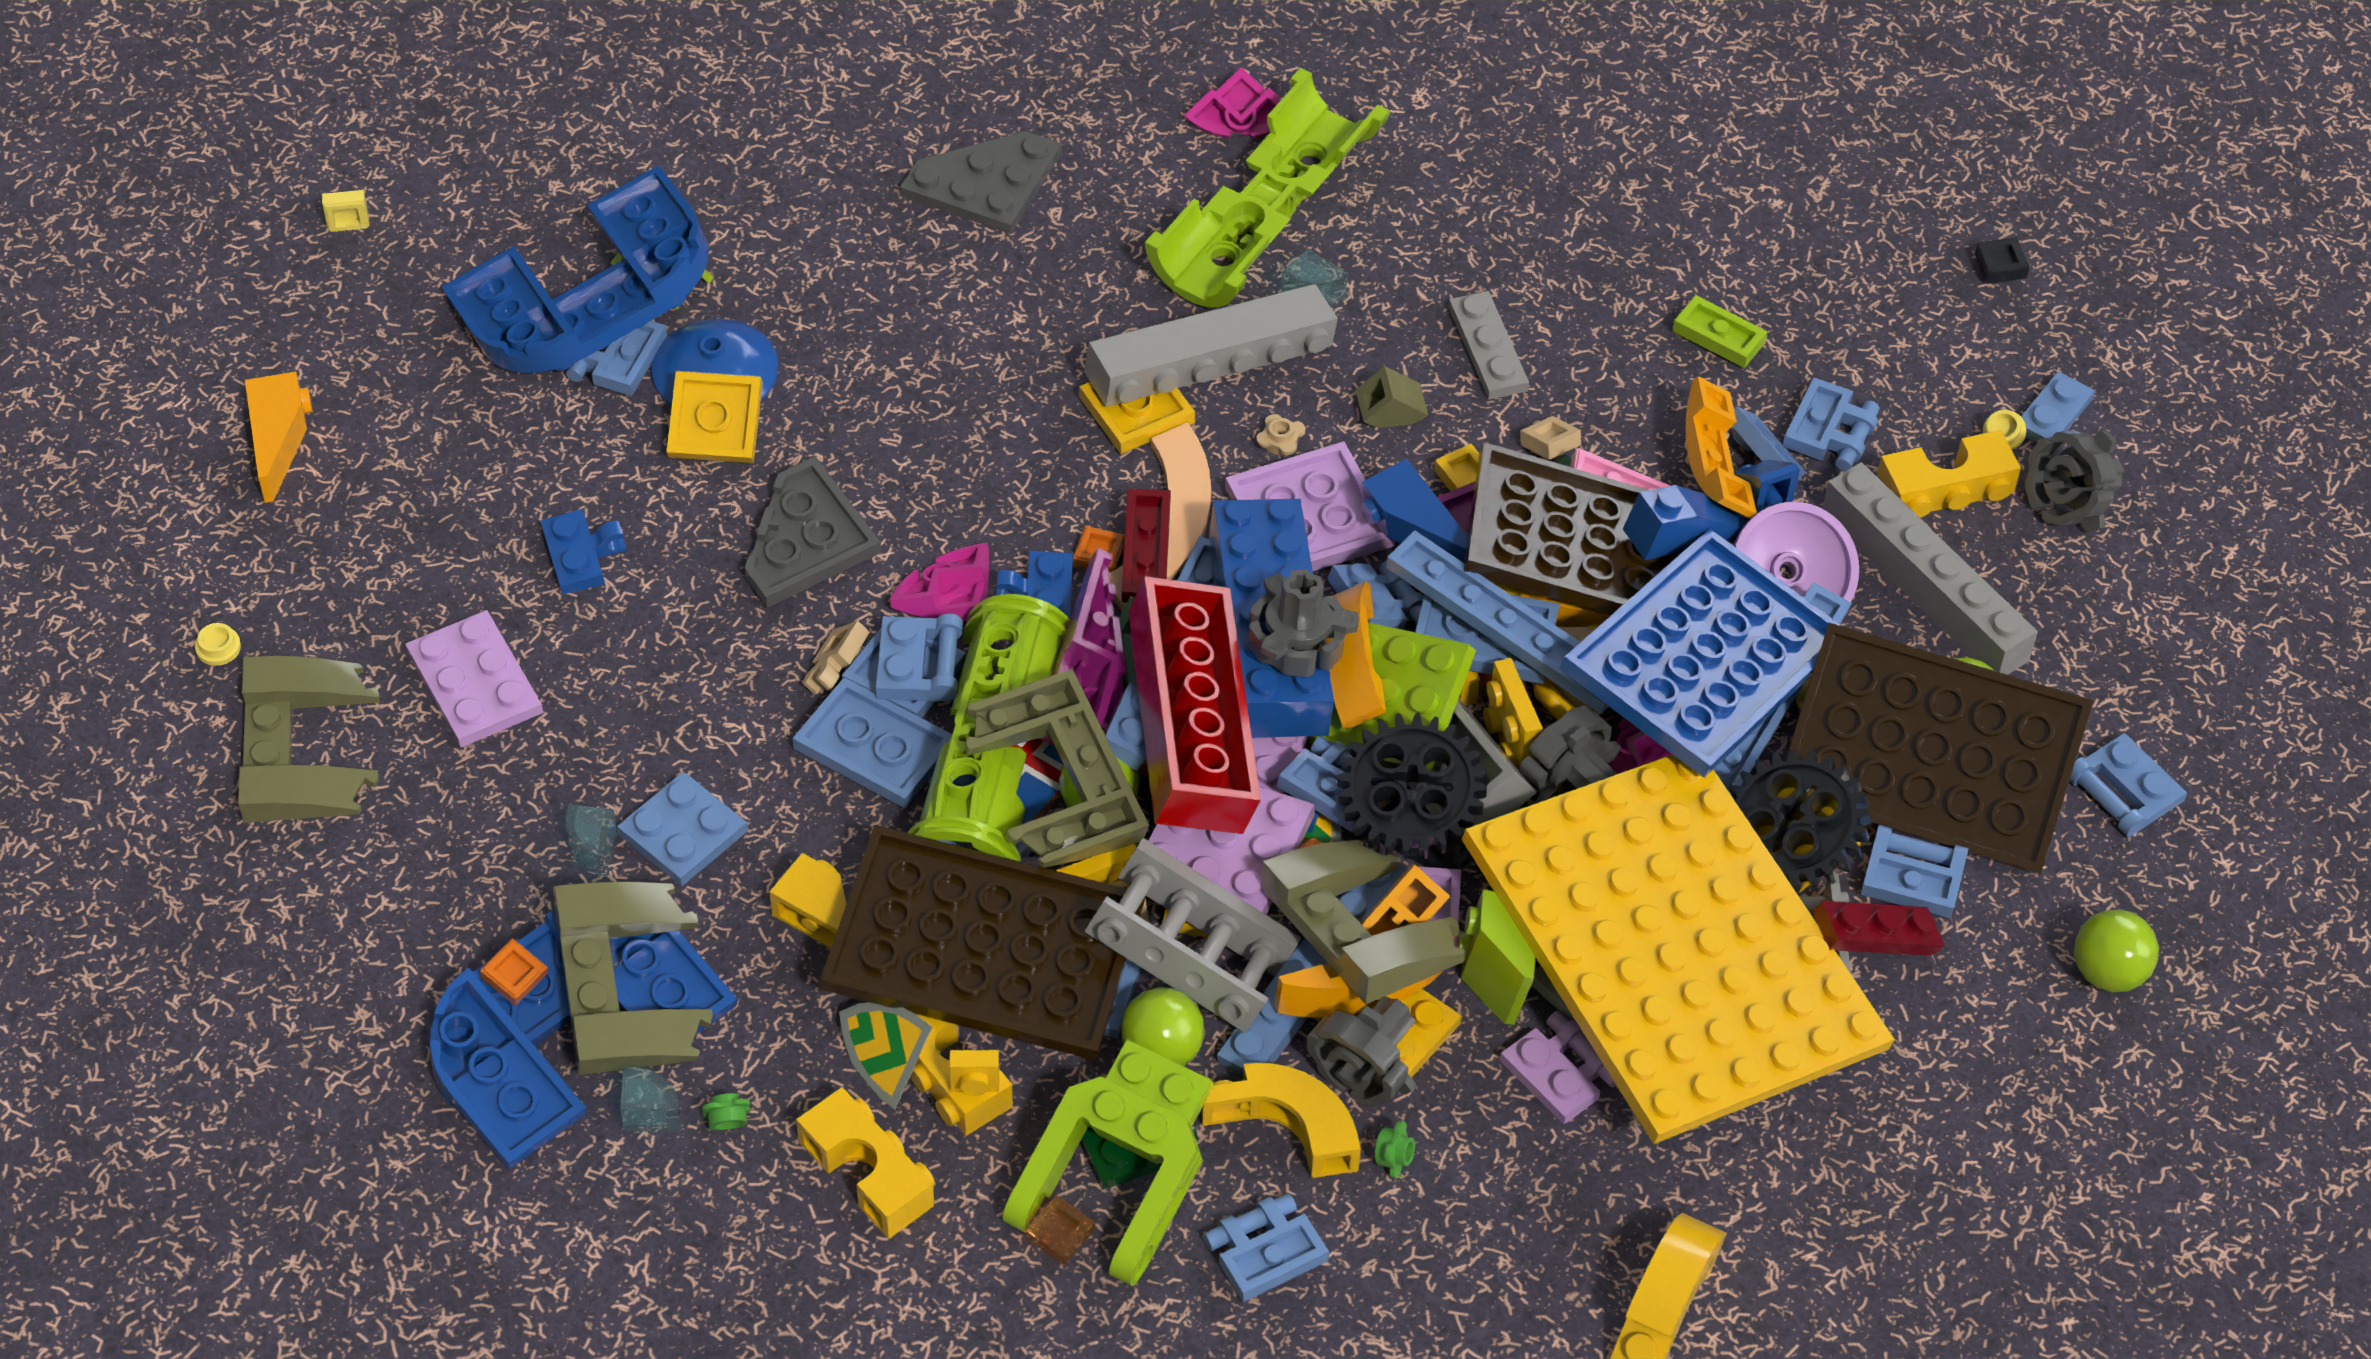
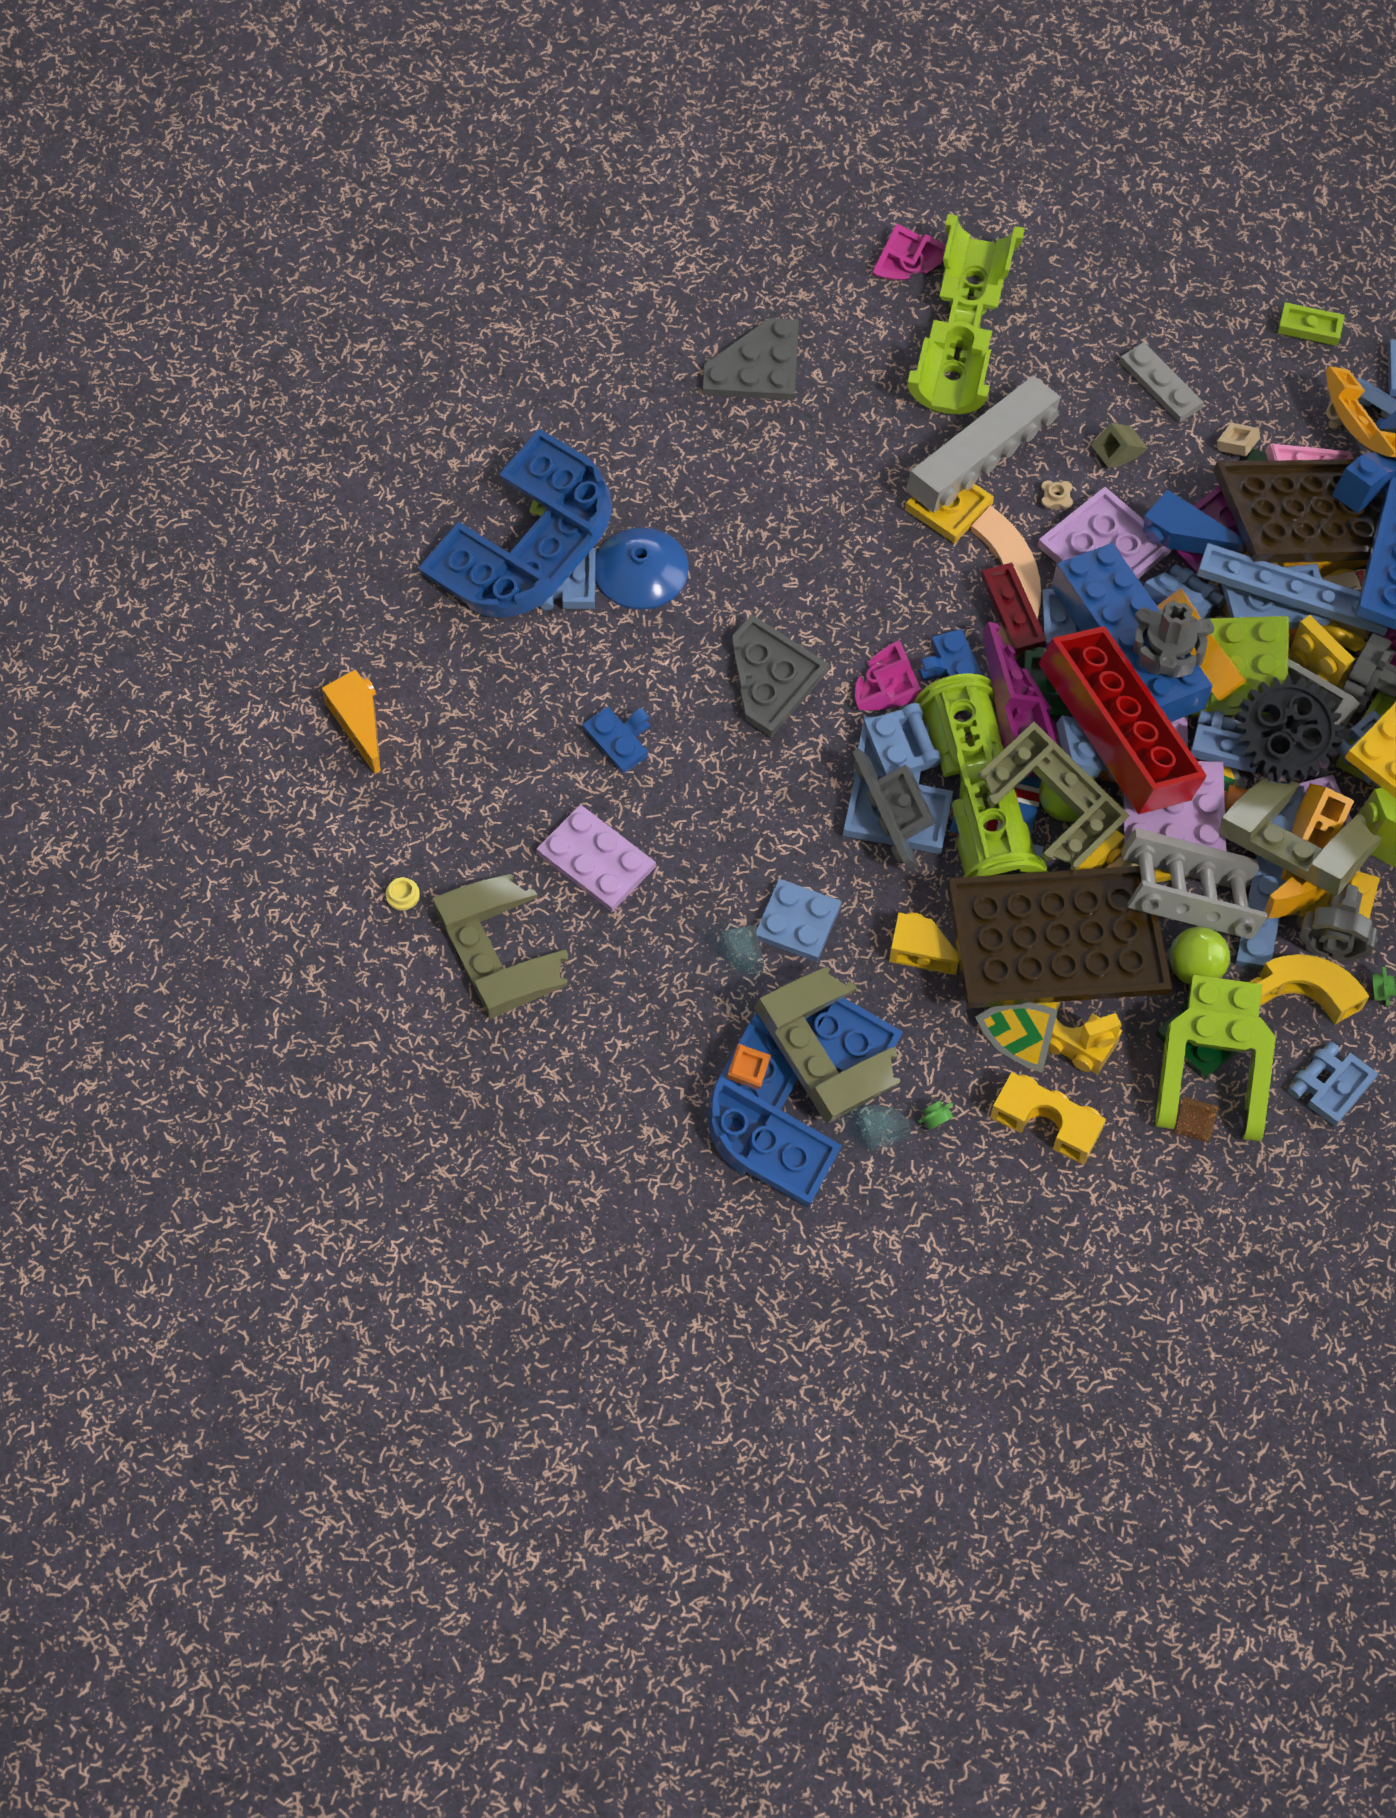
camera: 20 degrees left, 10 degrees up
(345, 210) = (318, 531): light yellow tile -> none
(714, 417) = (667, 607): yellow plate -> none
(837, 652) = (839, 758): tan plate -> none
(868, 726) = (900, 805): none -> dark grey bracket
(1096, 538) = (974, 618): orange tile -> none
(1314, 269) = (1023, 367): clear light blue brick -> none
(1458, 467) = (1192, 482): yellow plate -> none

